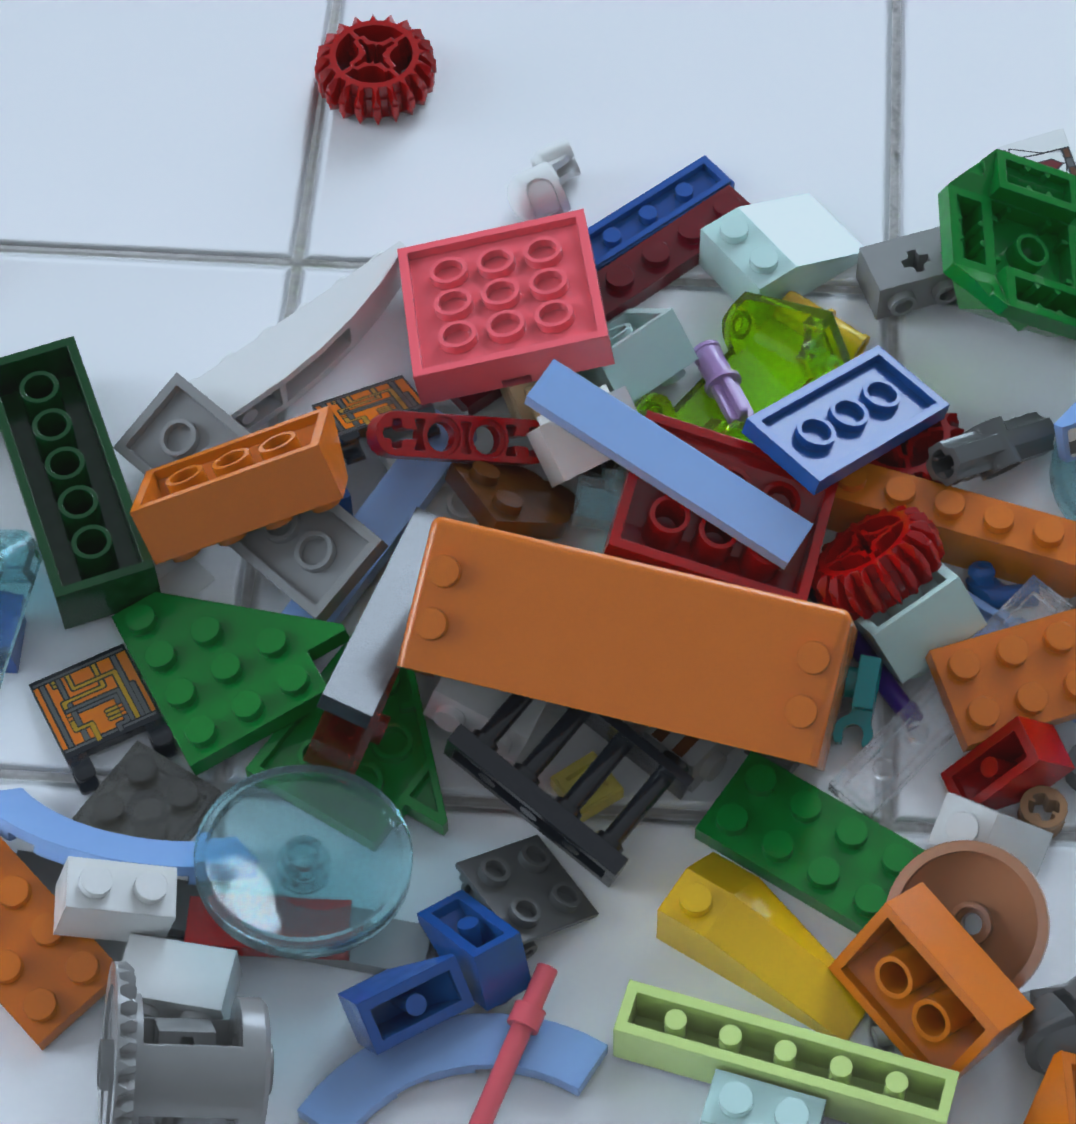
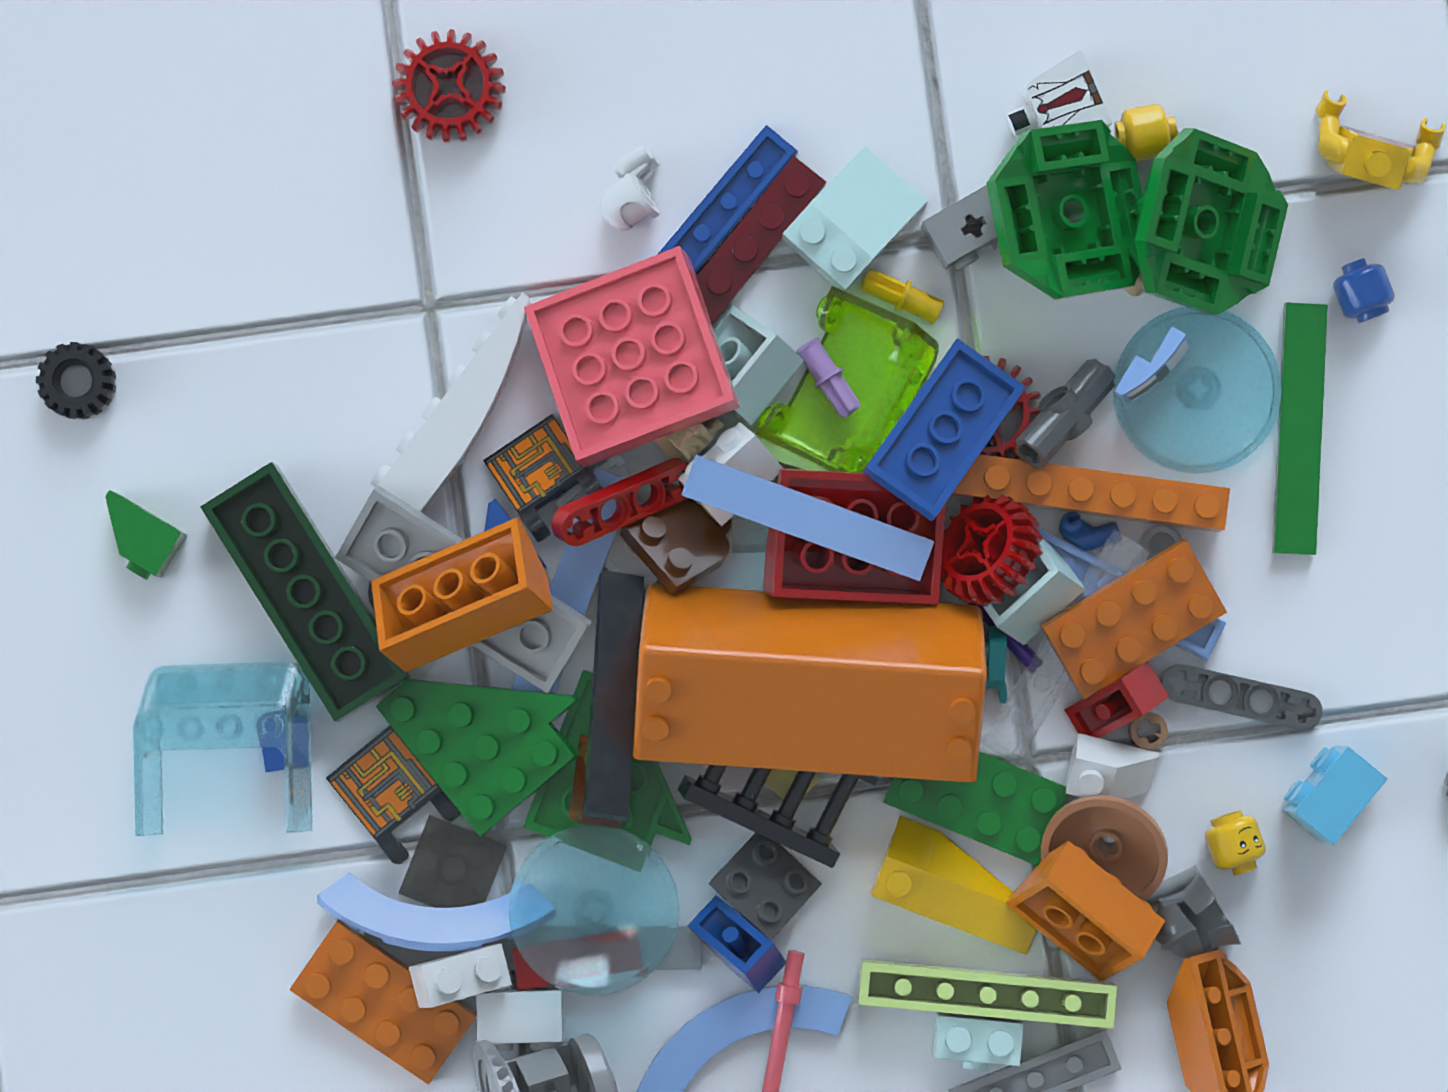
camera: 15 degrees left, 30 degrees up
(405, 1001) = (696, 1003): blue slope -> none

